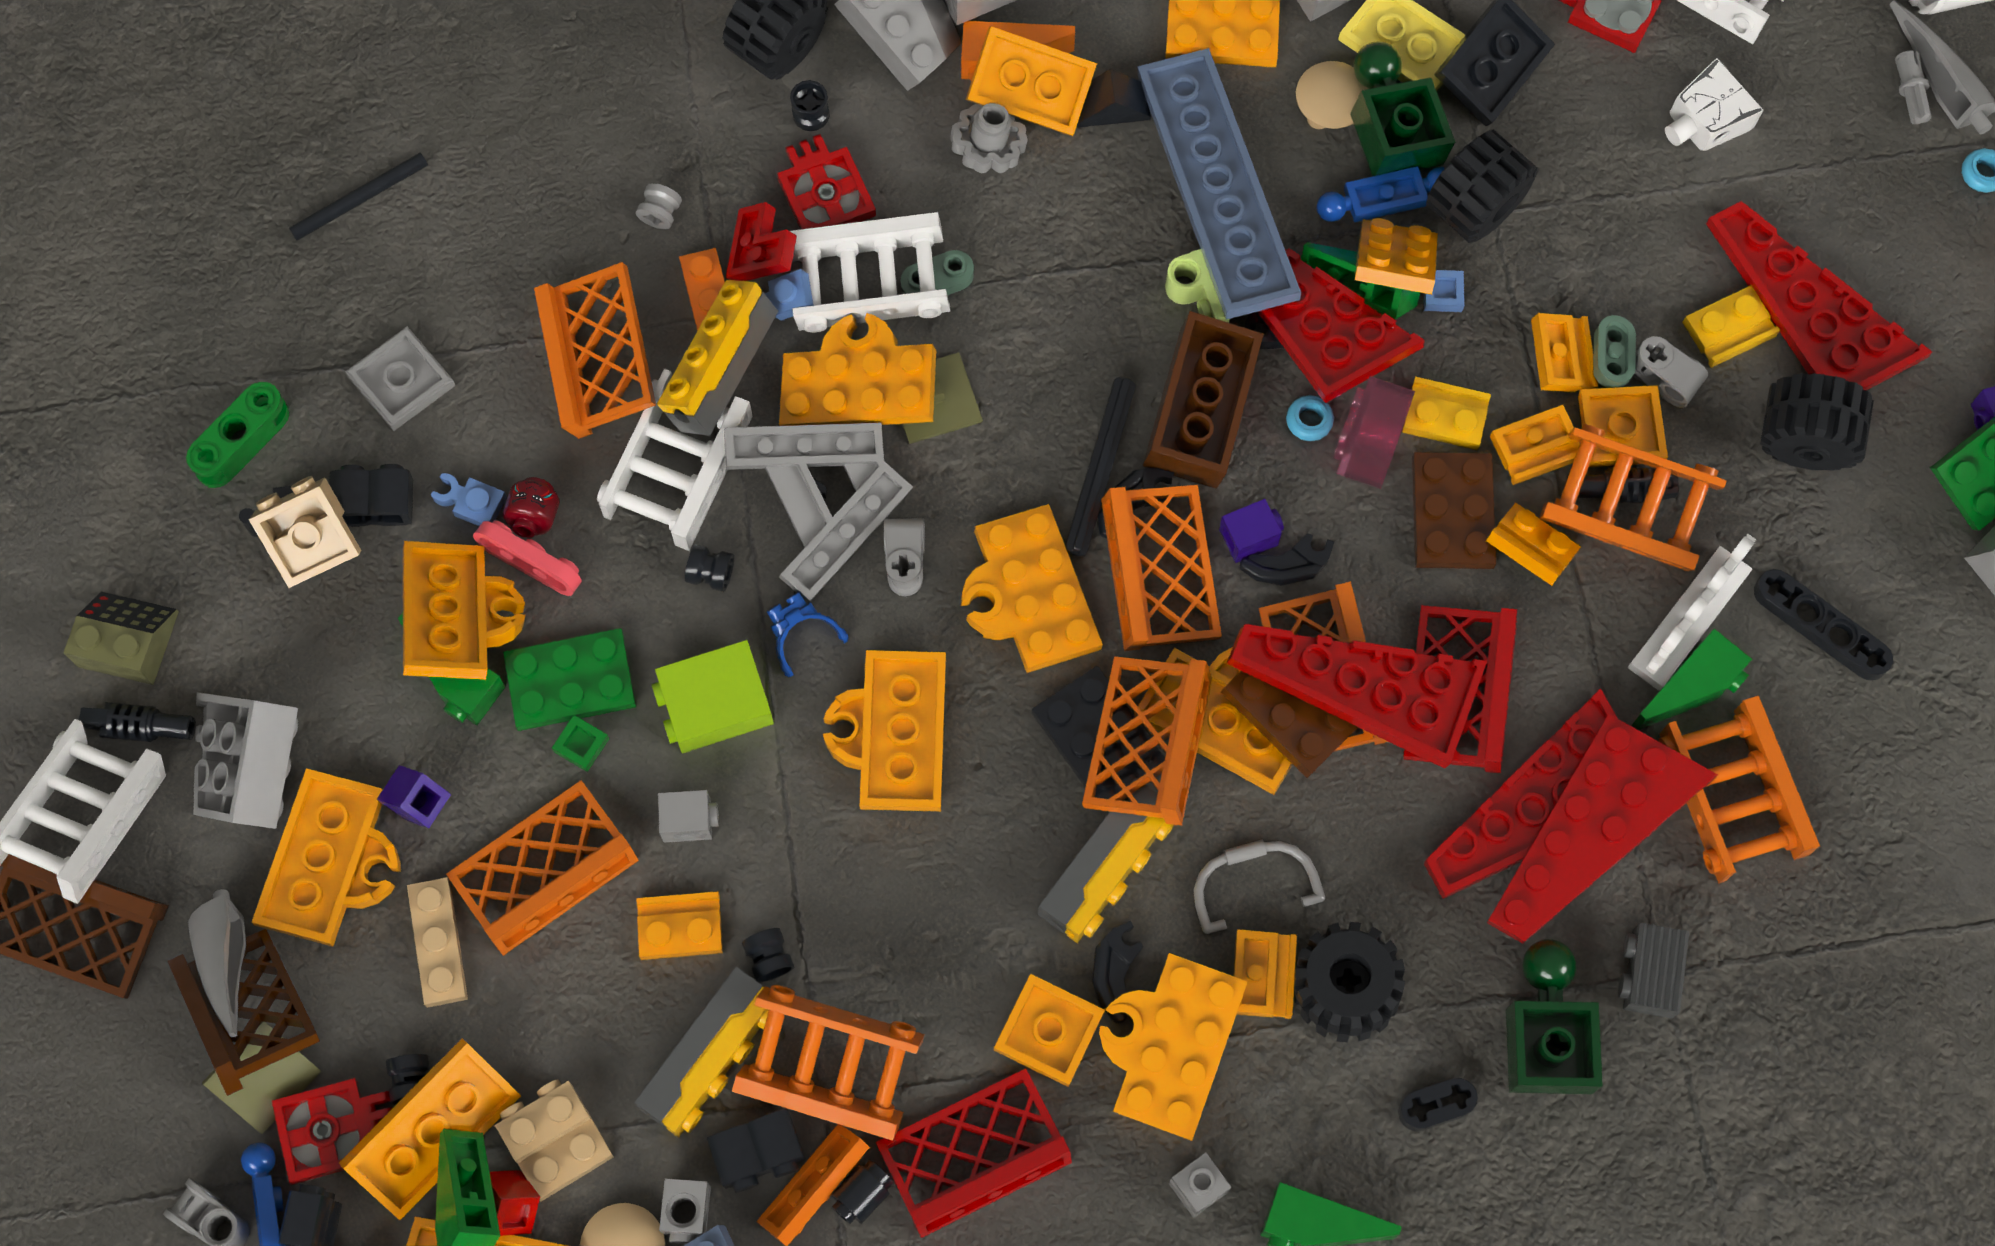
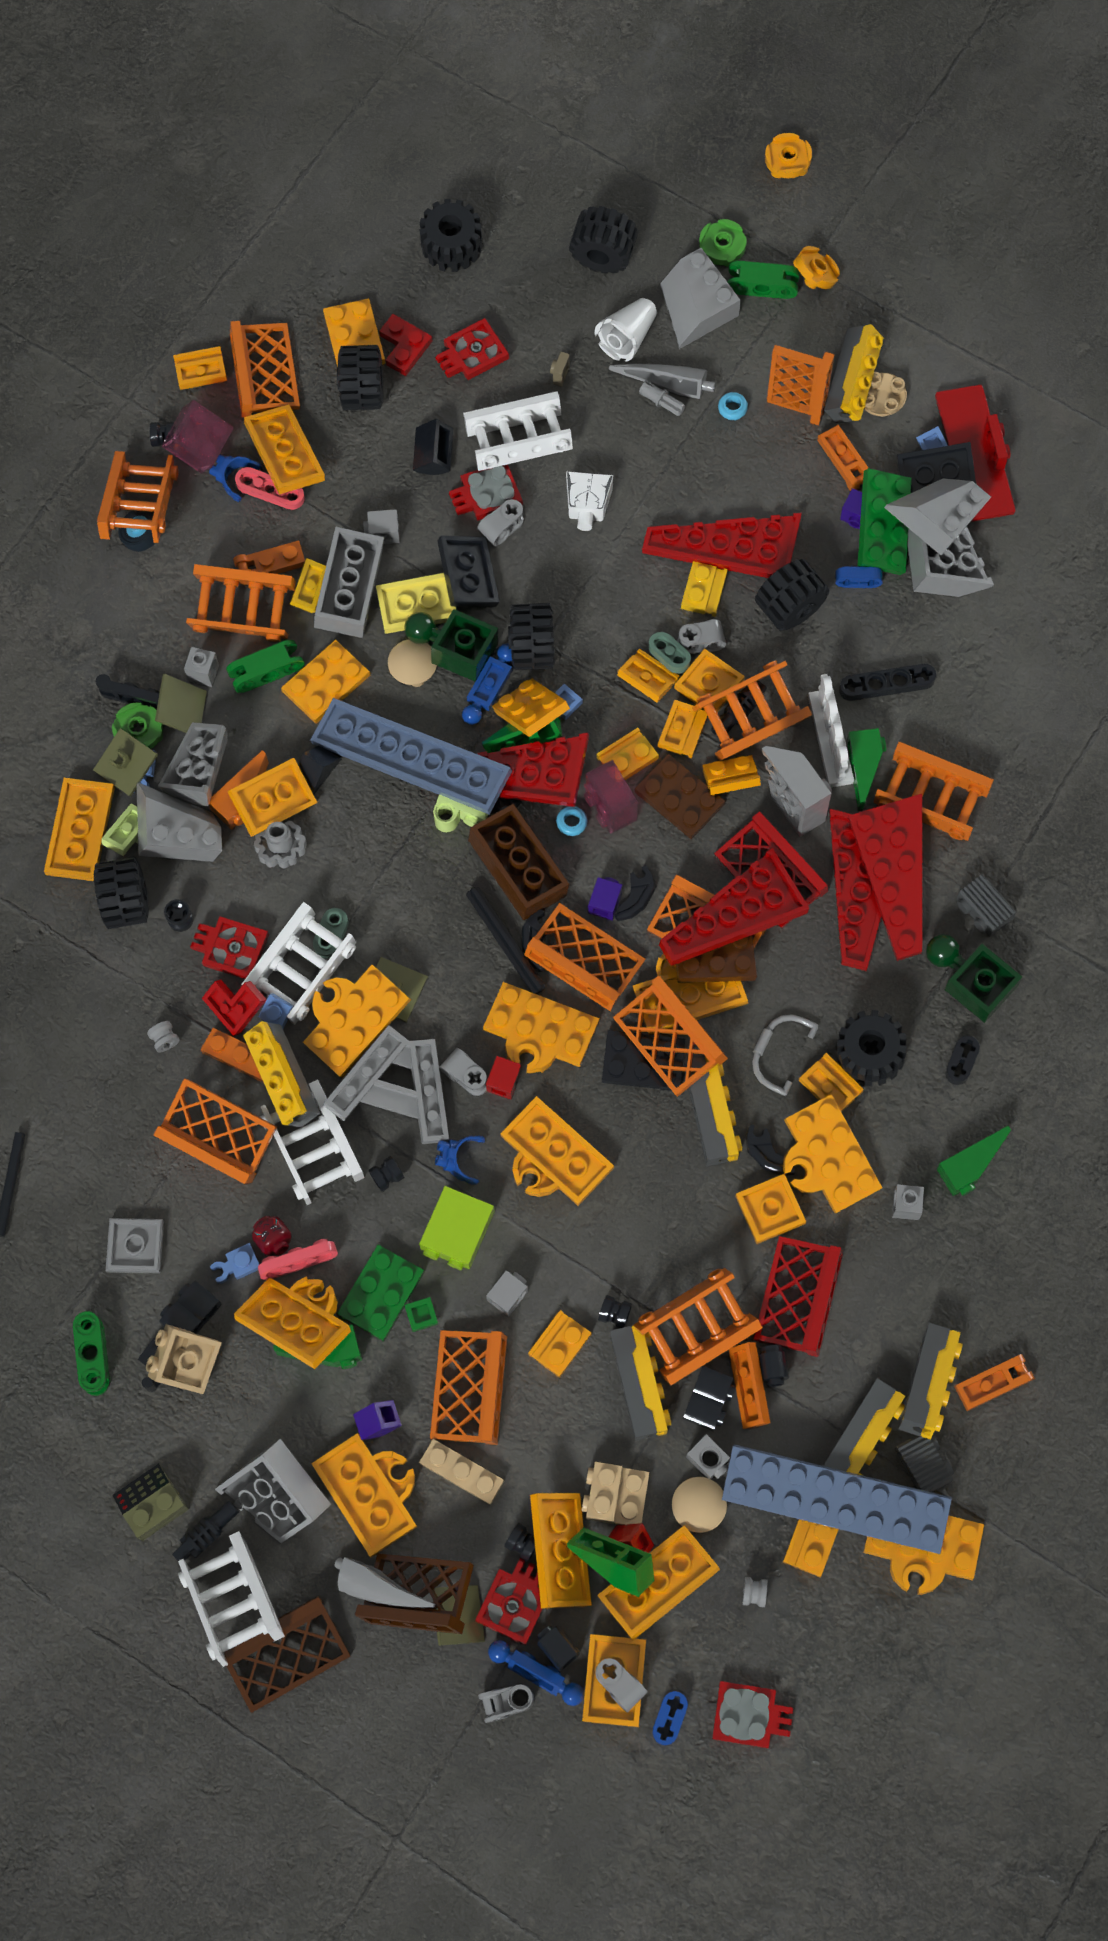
camera: 45 degrees left, 0 degrees up
(933, 596) = (503, 1077): none -> red panel
(1582, 626) = (797, 789): none -> light grey wedge
(1587, 46) = (502, 522): none -> light grey piece
(1919, 482) = (859, 577): none -> blue beam

